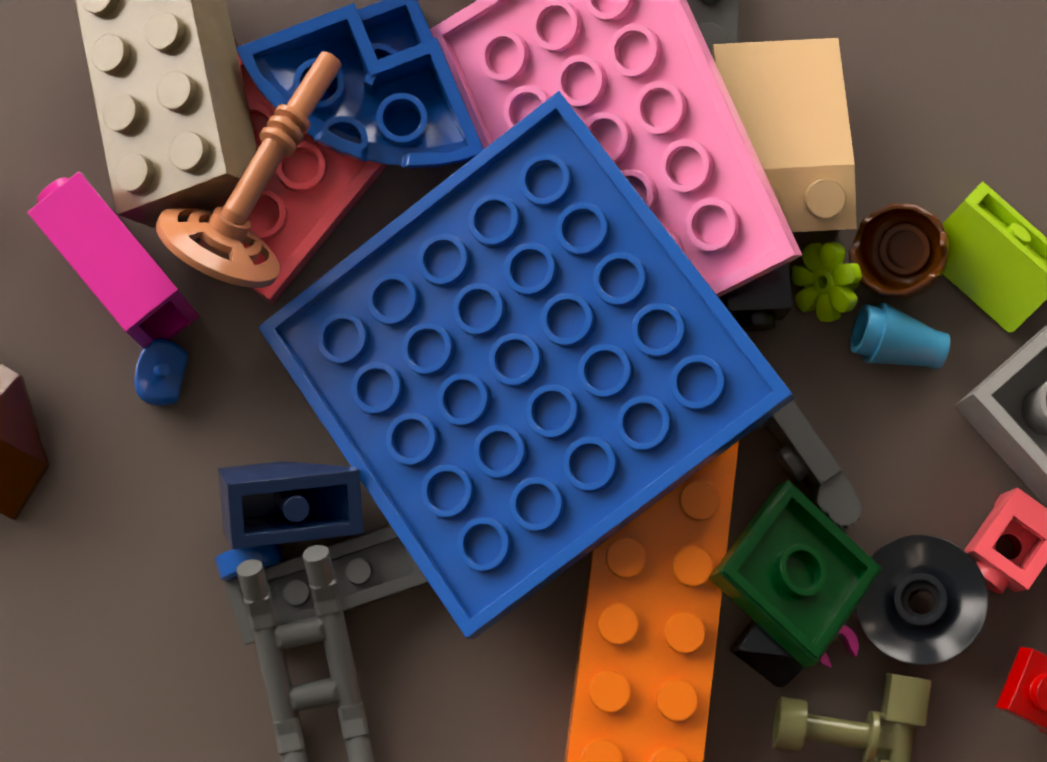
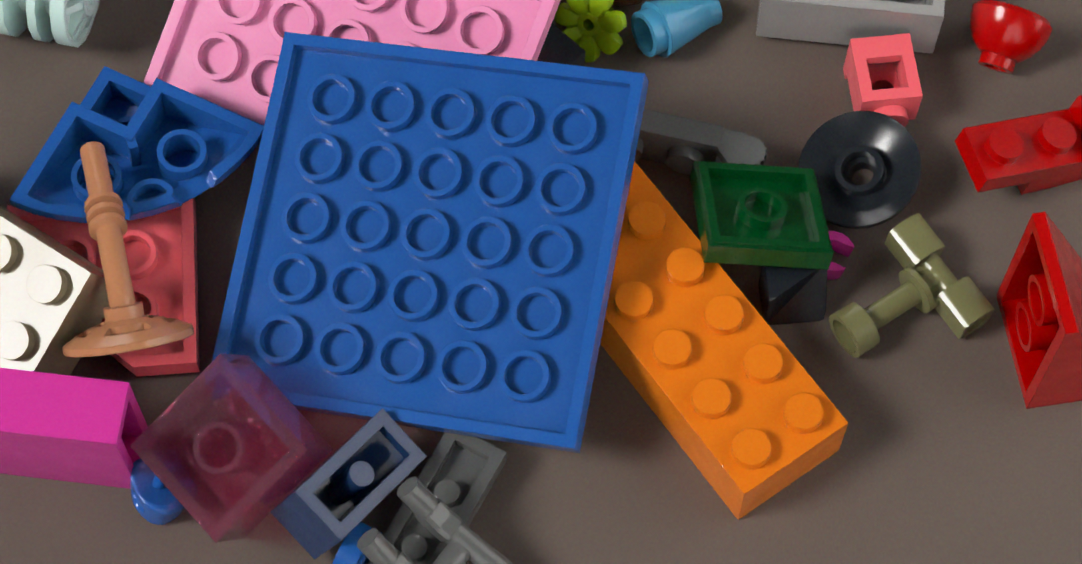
camera: 40 degrees left, 15 degrees down
(225, 397) = (231, 447): none -> clear pink brick

